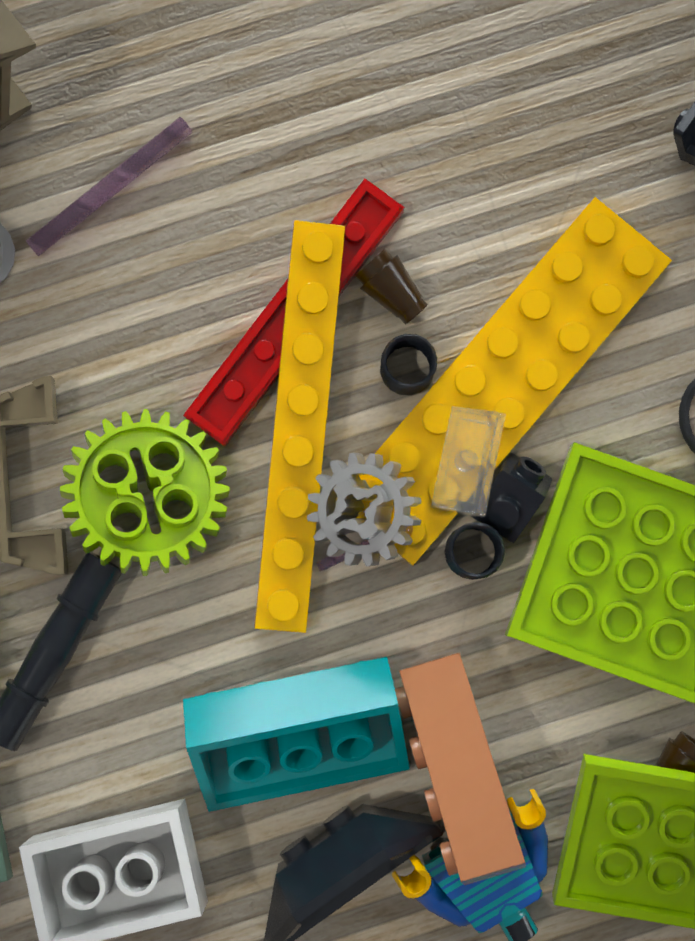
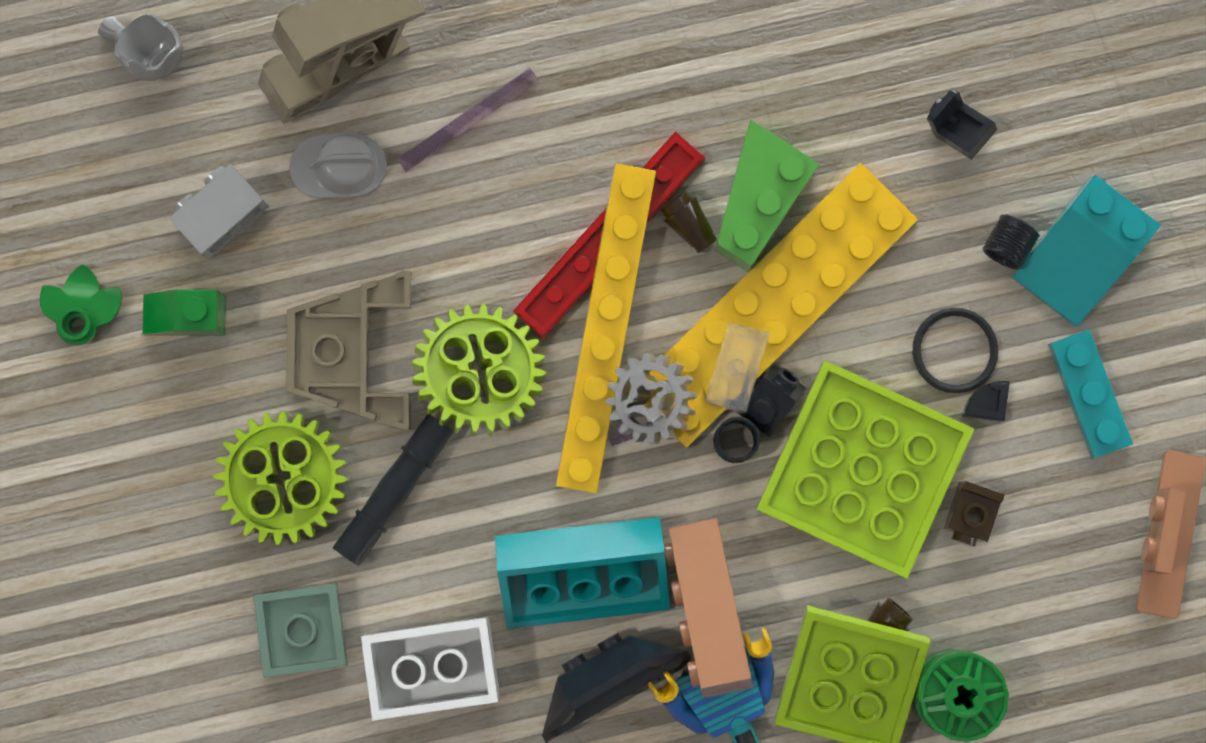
camera: 10 degrees right, 0 degrees up
(418, 343) = (702, 267): black piece -> none
(478, 242) = (761, 195): none -> bright green wedge

